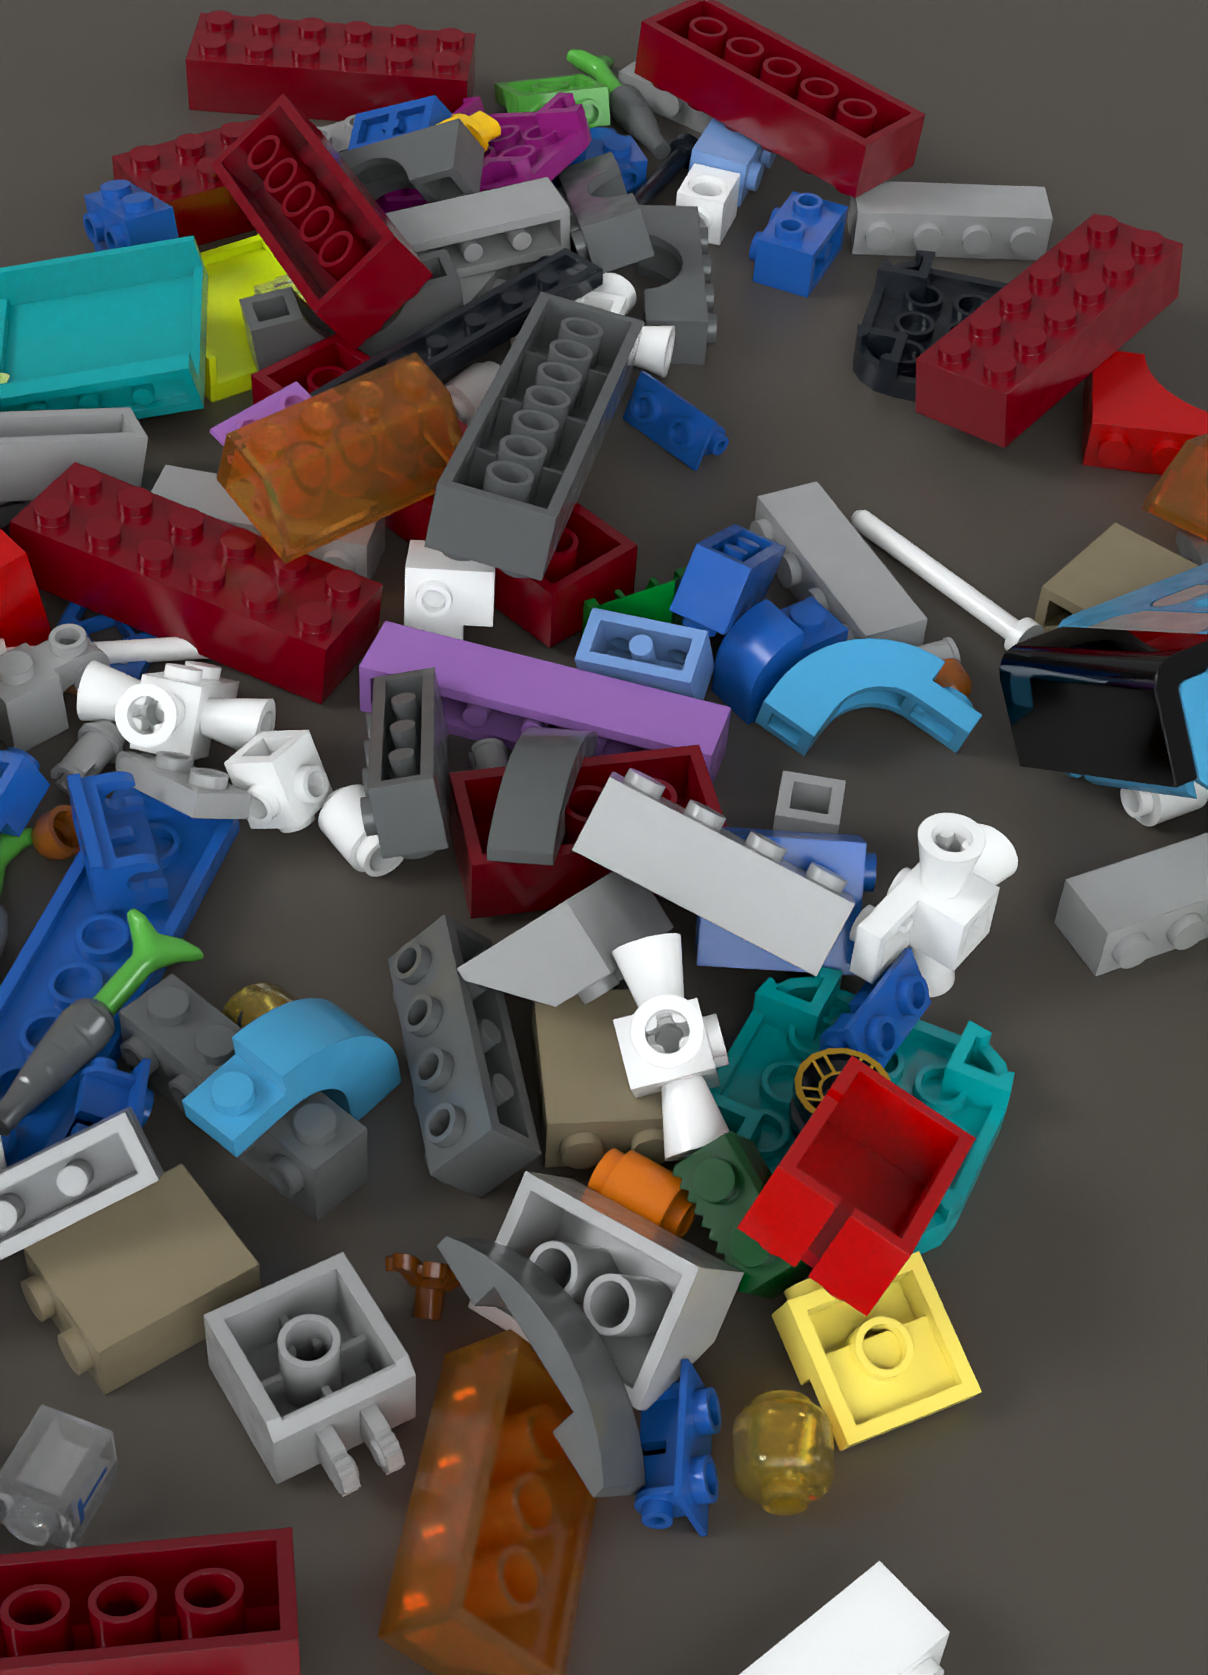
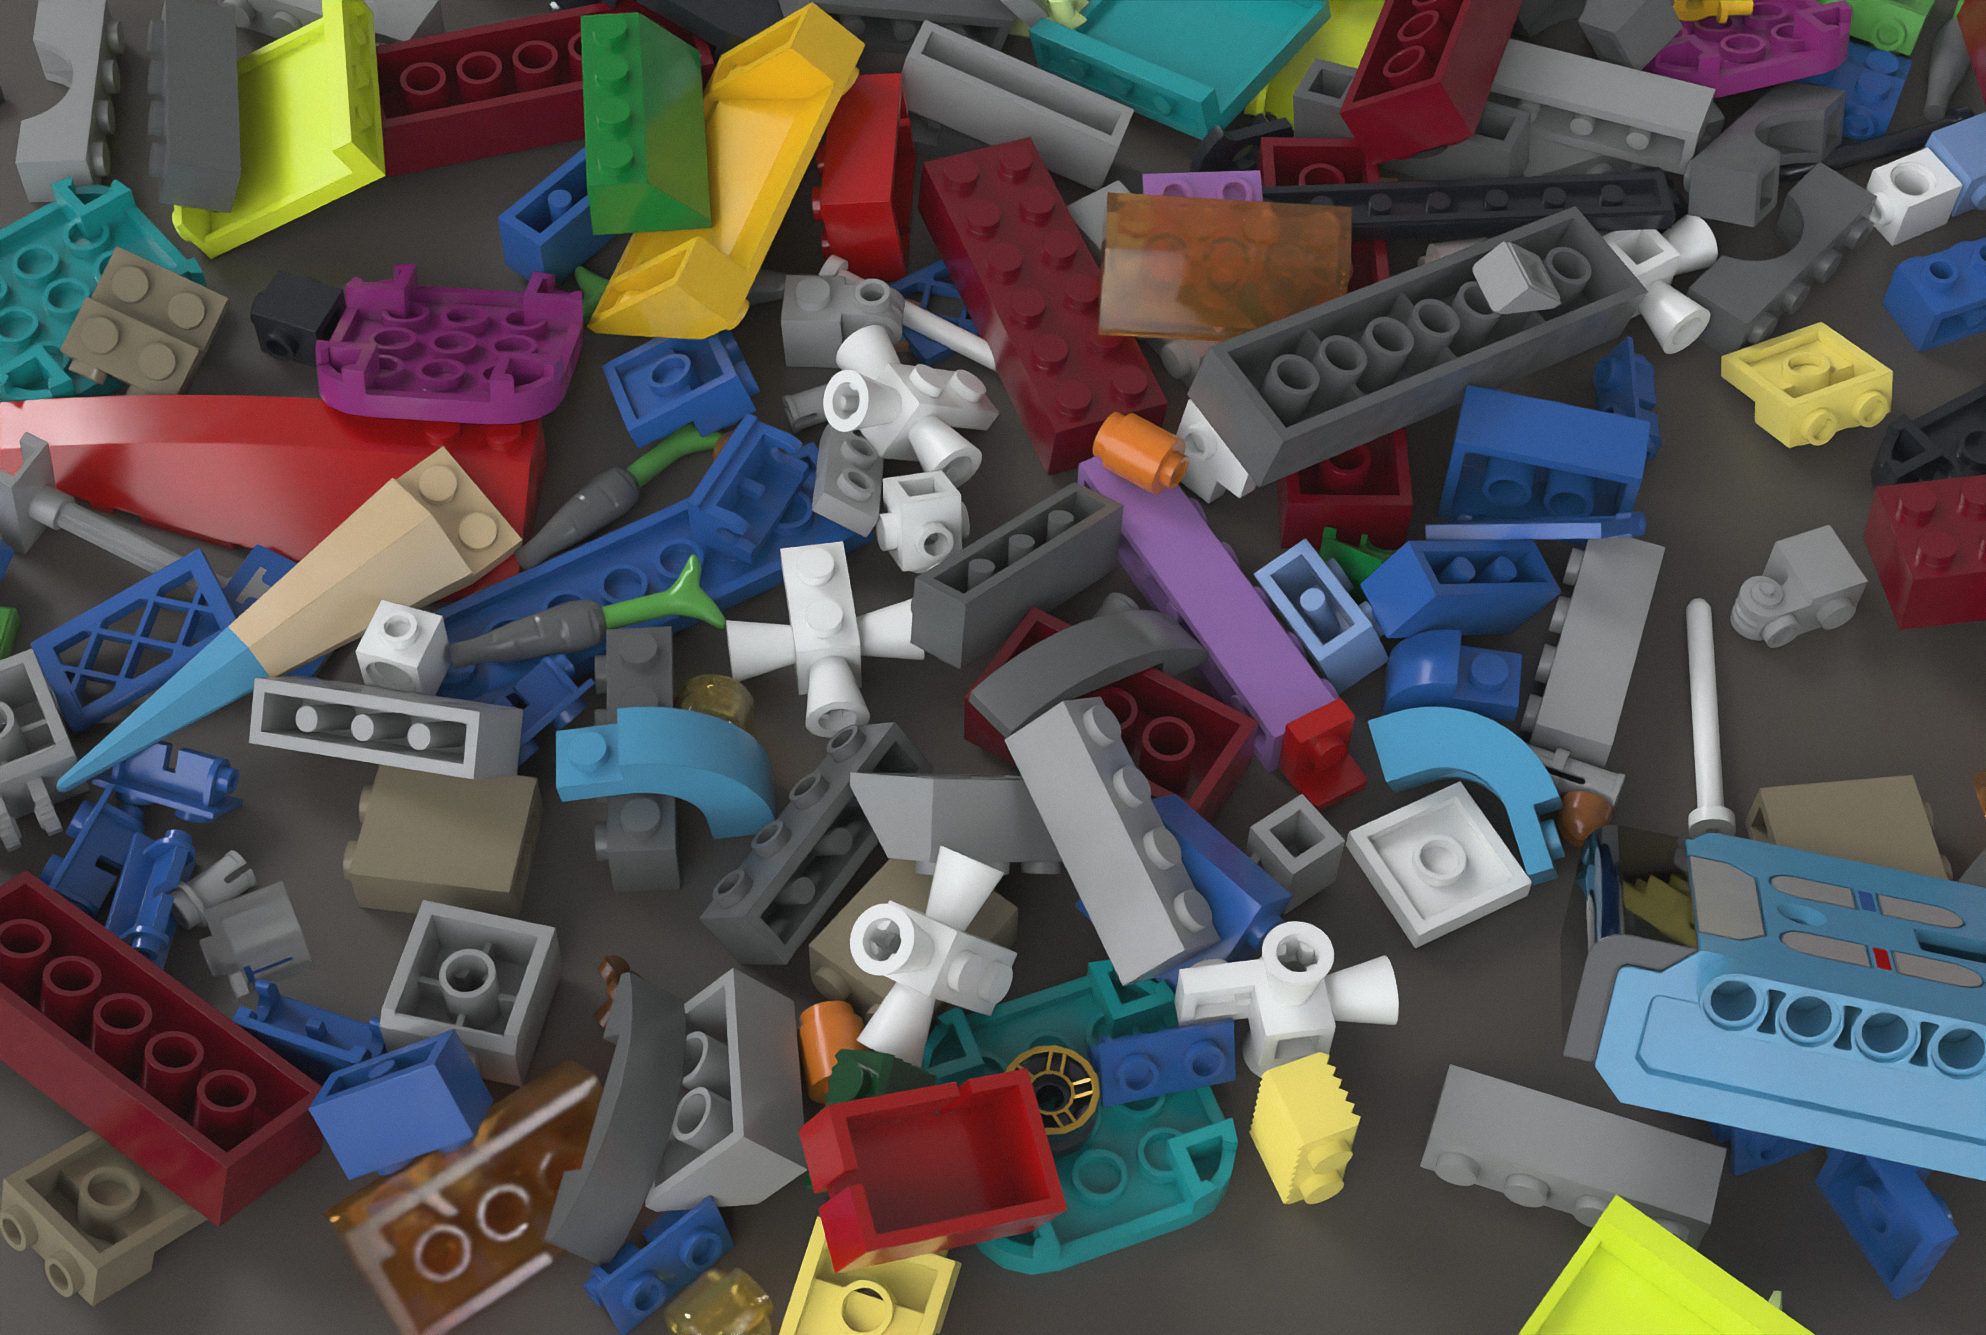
camera: 45 degrees right, 10 degrees up
(225, 398) = (1220, 146): none -> black piece
(227, 1503) = (308, 1035): none -> blue hinge
(295, 910) = (822, 638): none -> white brick
(374, 1481) = (402, 1106): none -> blue brick
(410, 622) = (1141, 452): none -> orange brick
(568, 347) = (1515, 280): none -> light grey slope
(685, 475) = (1541, 459): none -> blue brick
(741, 759) = (1317, 755): none -> red bracket
(779, 342) = (1810, 384): none -> light yellow plate
(792, 472) = (1519, 528): none -> blue window
(895, 771) = (1438, 864): none -> white plate
(913, 463) = (1802, 588): none -> light grey brick
(1030, 985) = (1304, 1129): none -> light yellow brick

